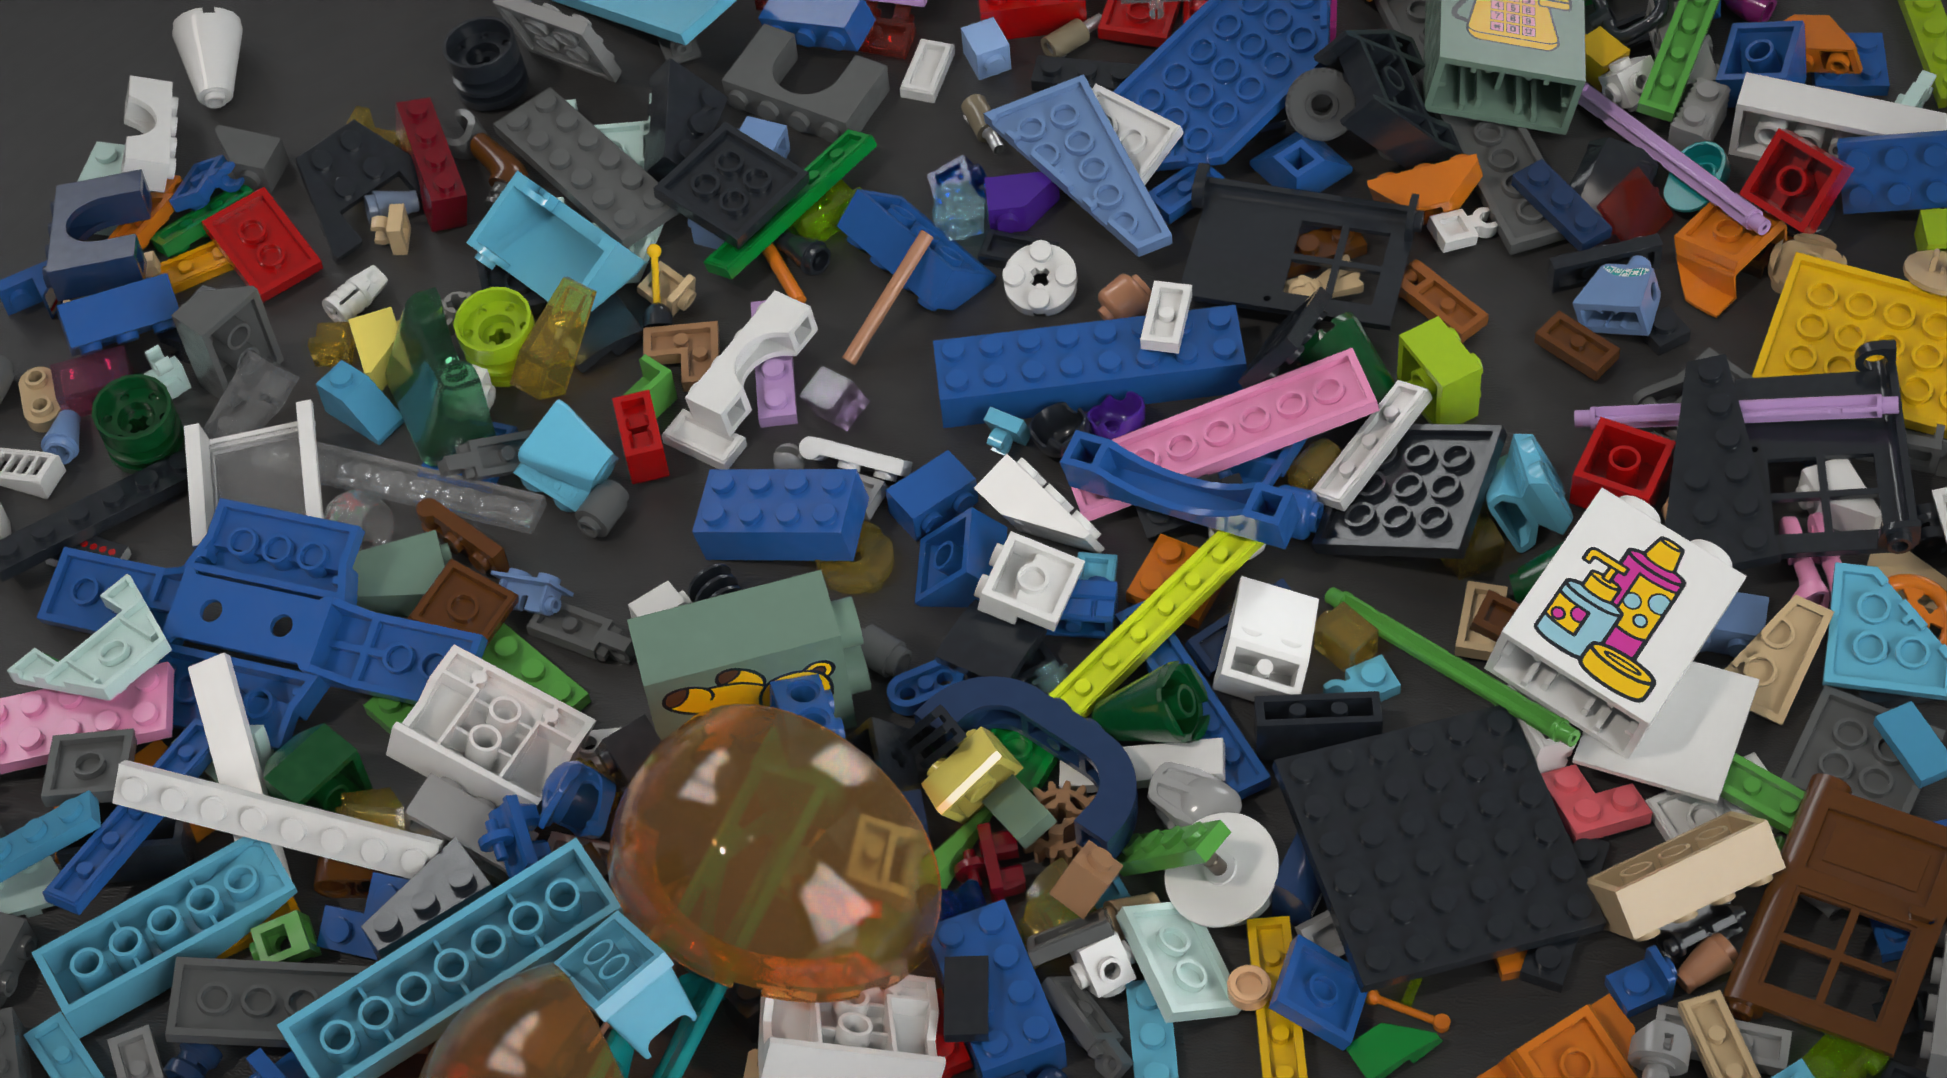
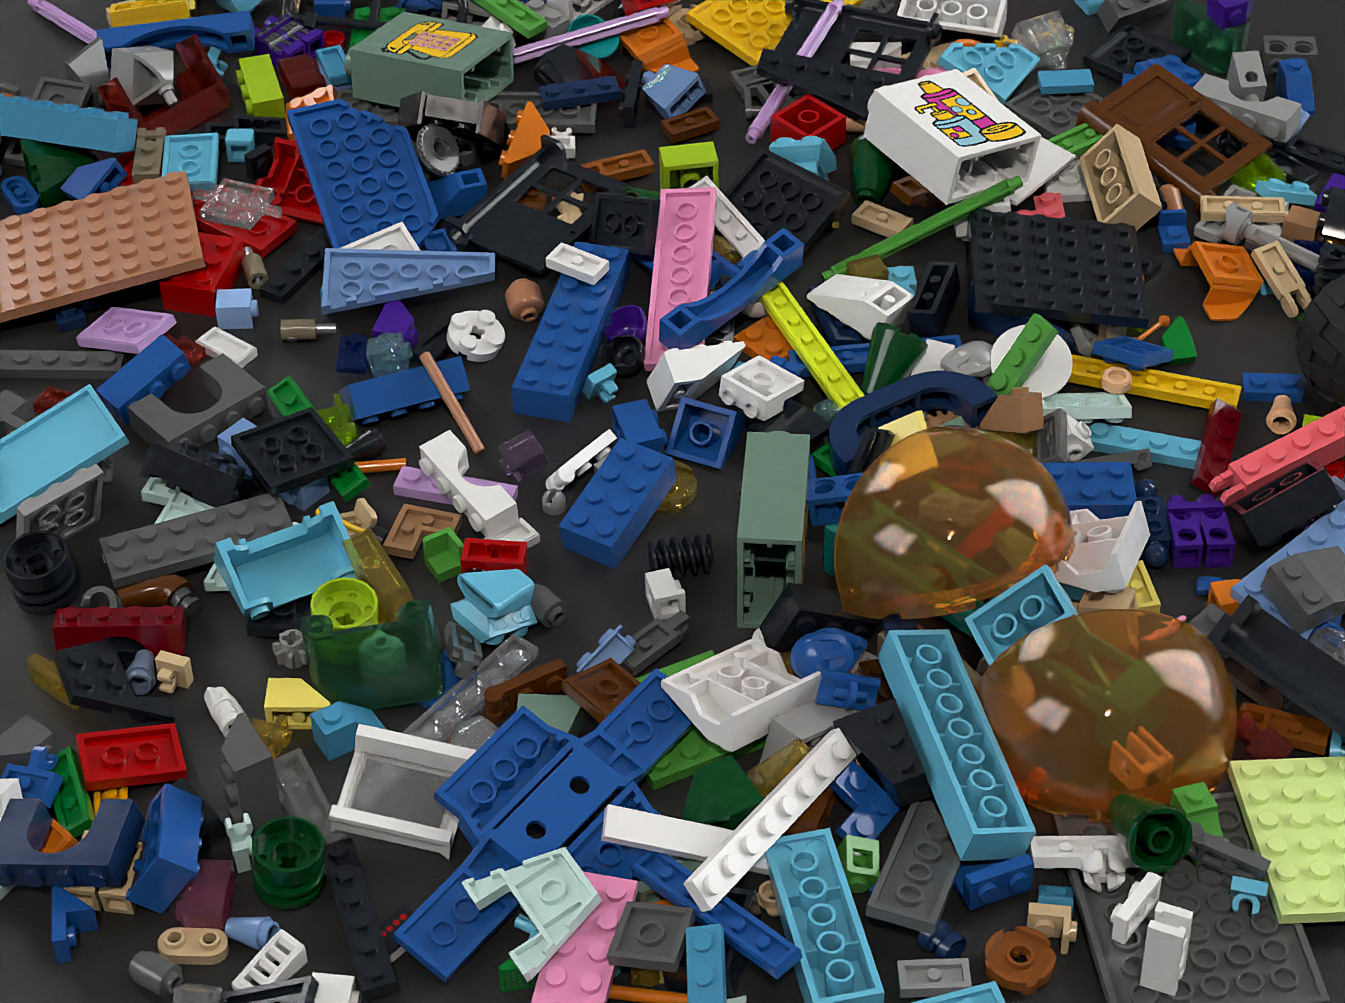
camera: 75 degrees left, 10 degrees down
(966, 998) = (1088, 489): black tile -> none

